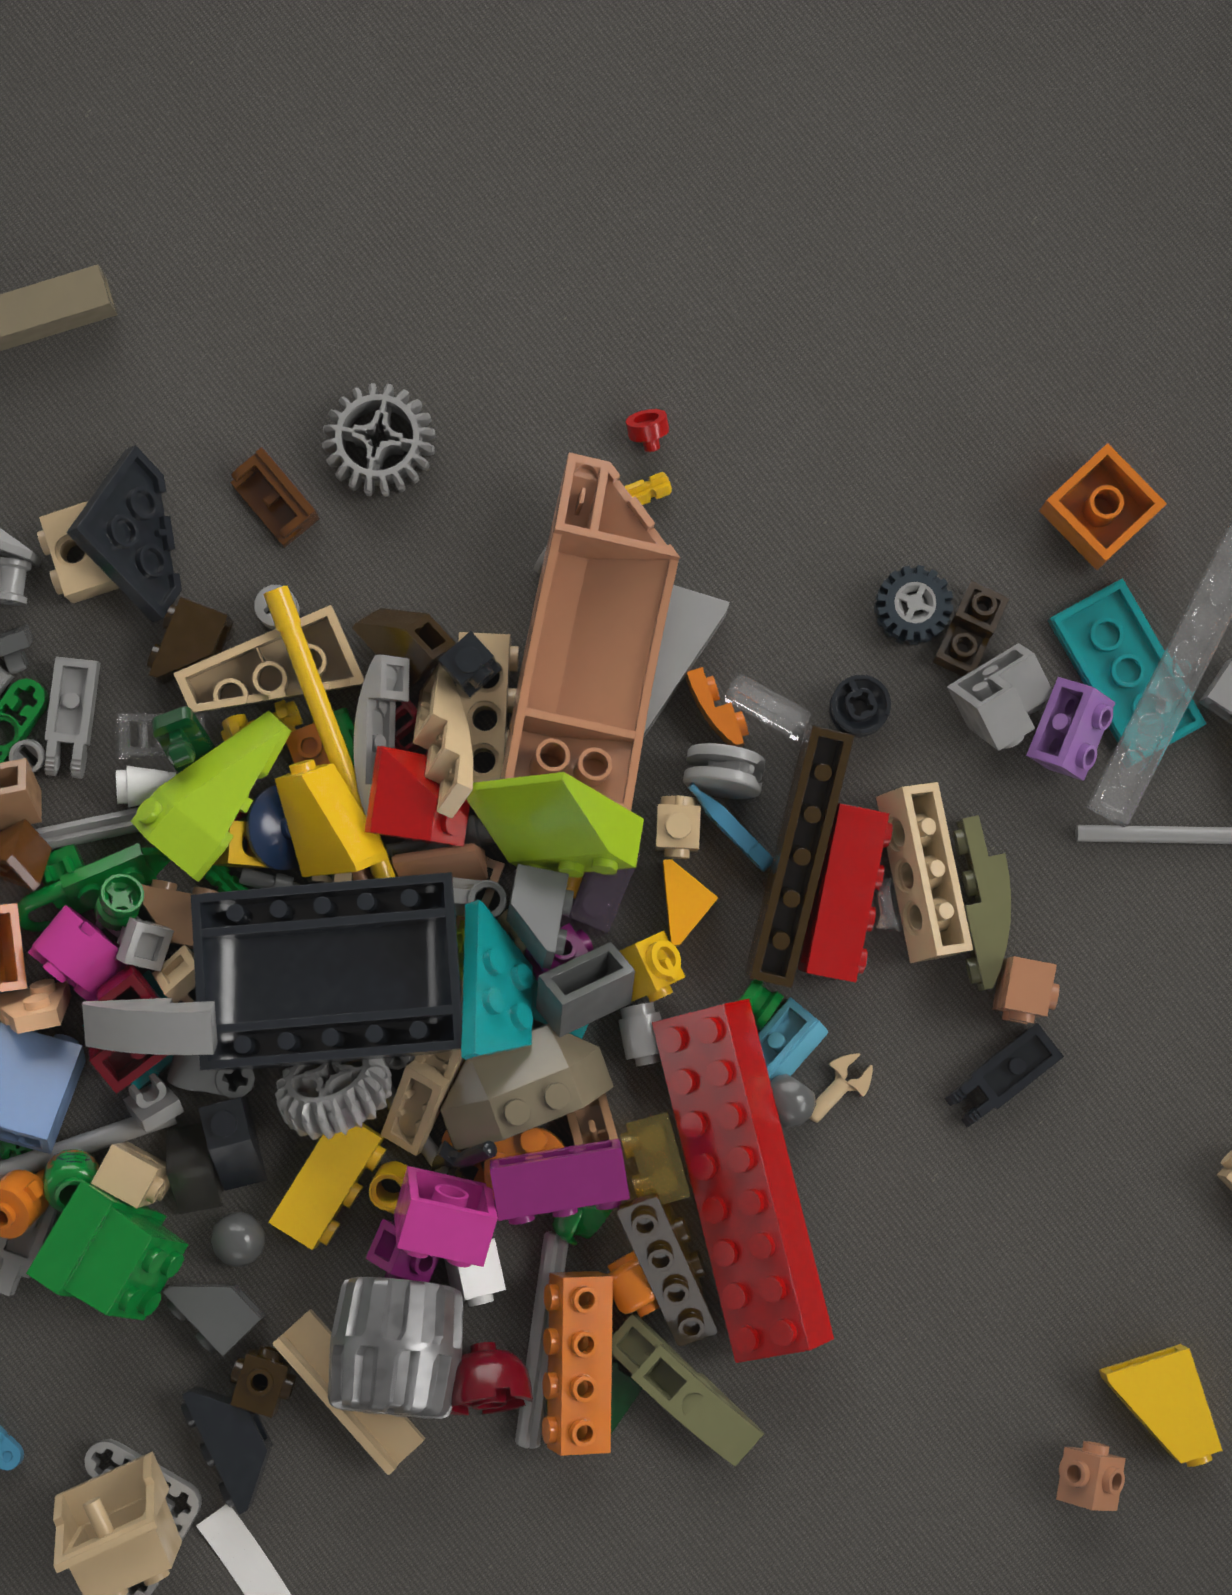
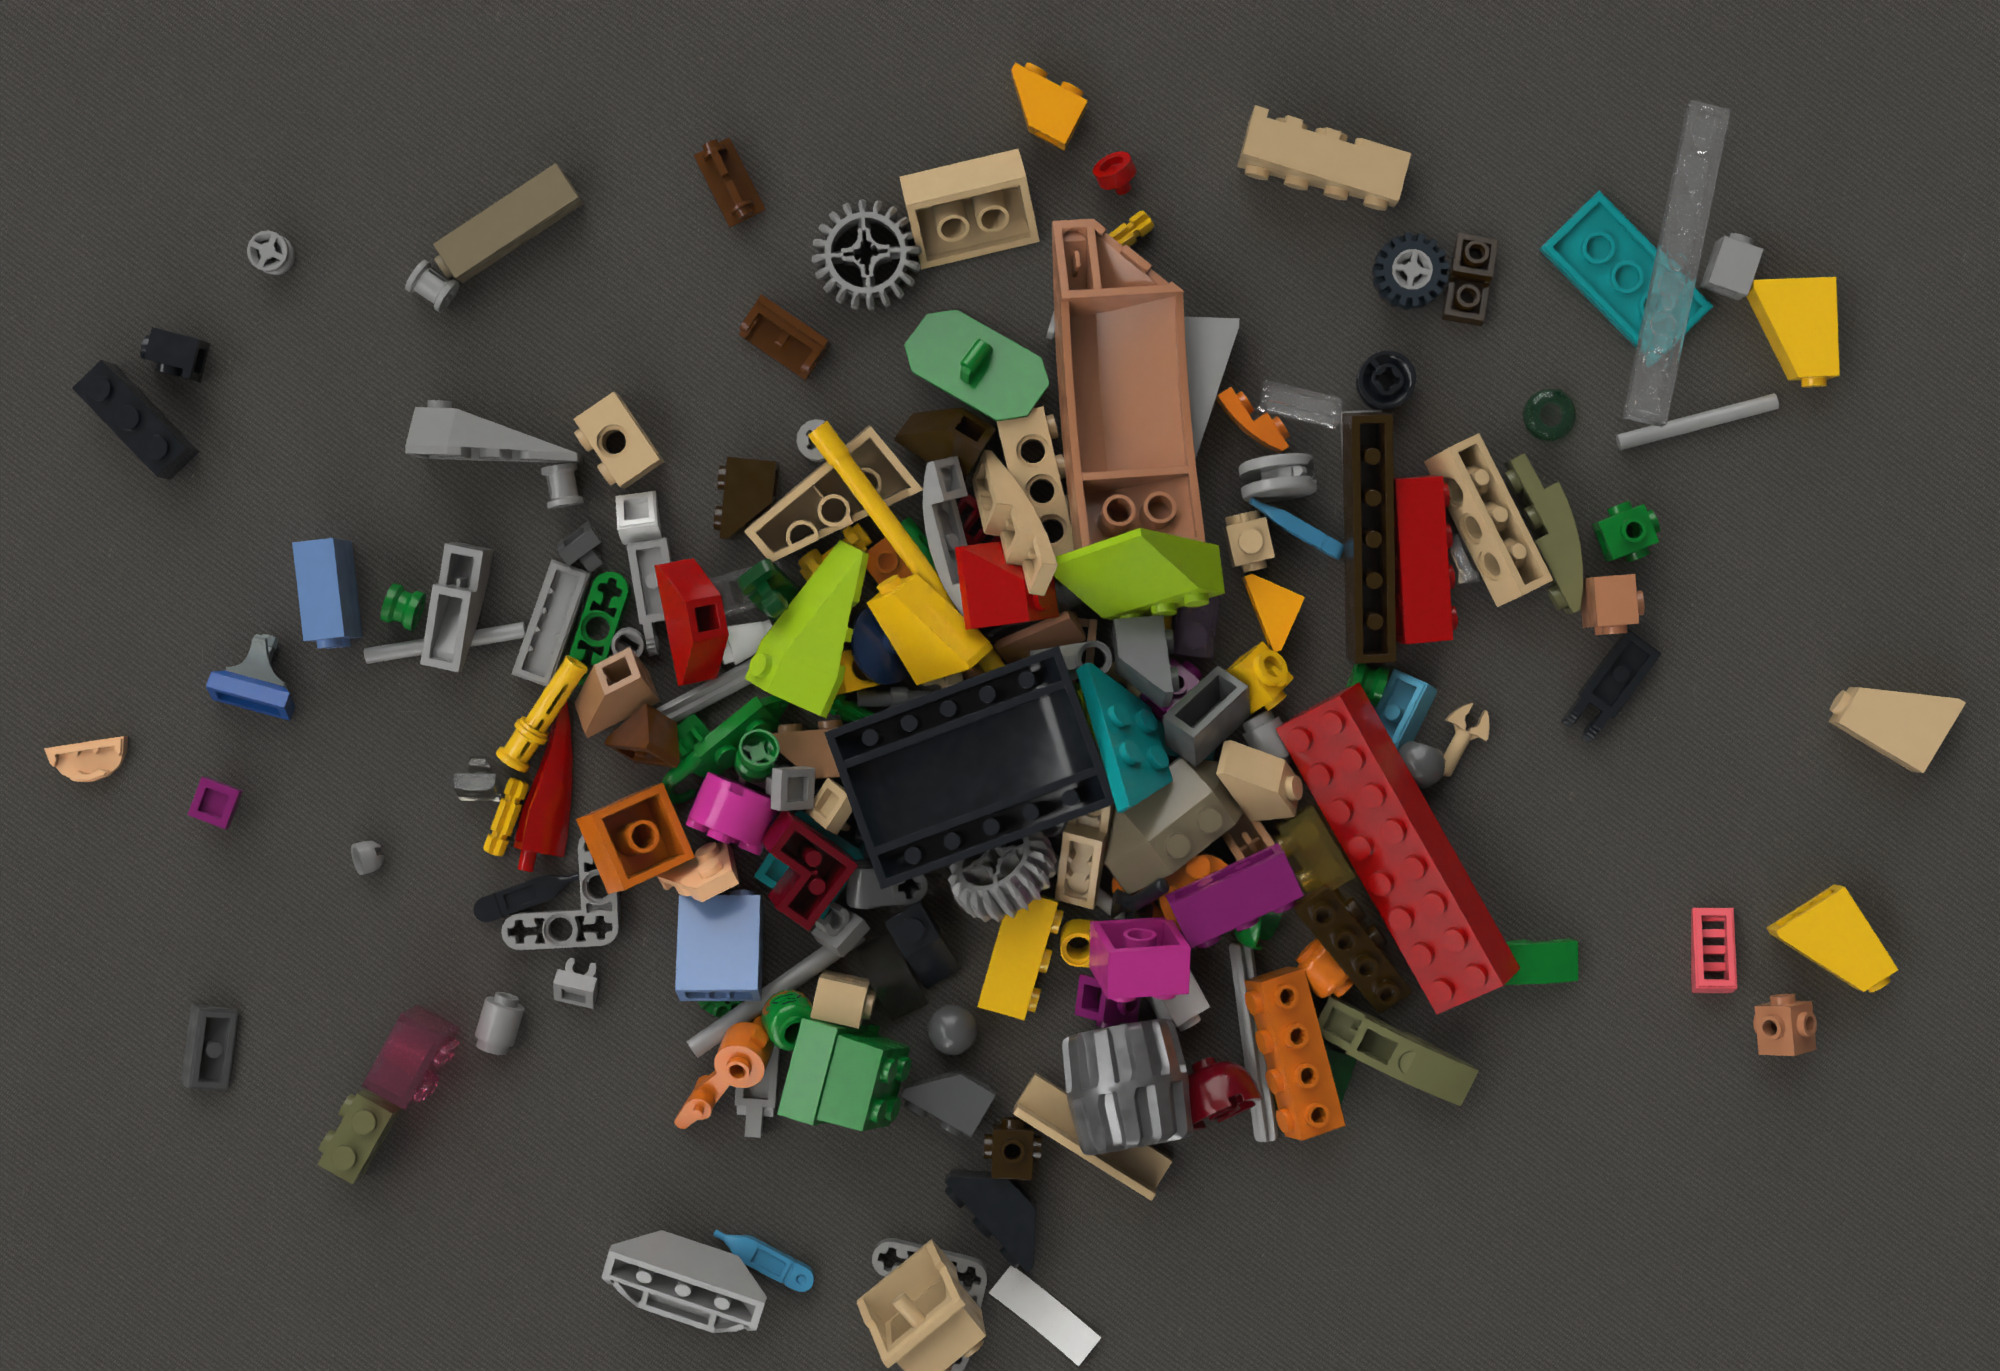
camera: 10 degrees left, 5 degrees up
(76, 634) = (638, 517): none -> white slope
(96, 749) = (692, 620): none -> red slope
(130, 535) = (662, 410): black plate -> none
(151, 1026) = (825, 863): light grey slope -> none
(265, 331) = (729, 181): none -> reddish brown hinge
(456, 577) = (976, 365): none -> green shield
(470, 664) = (1016, 446): black brick -> none
(493, 423) = (970, 208): none -> tan slope
(600, 348) = (1048, 109): none -> light orange slope
(619, 1071) = (1259, 782): none -> tan slope
(854, 471) = (1322, 160): none -> tan wedge
(861, 1340) = (1545, 961): none -> green slope
(997, 790) = (1532, 410): none -> clear green piece
(1001, 696) = (1515, 335): light grey brick -> none
(1018, 1391) = (1698, 966): none -> coral slope
(1046, 927) = (1612, 532): none -> green brick
(1071, 728) = (1589, 347): medium lavender brick -> none
(1102, 506) = (1563, 129): orange brick -> none

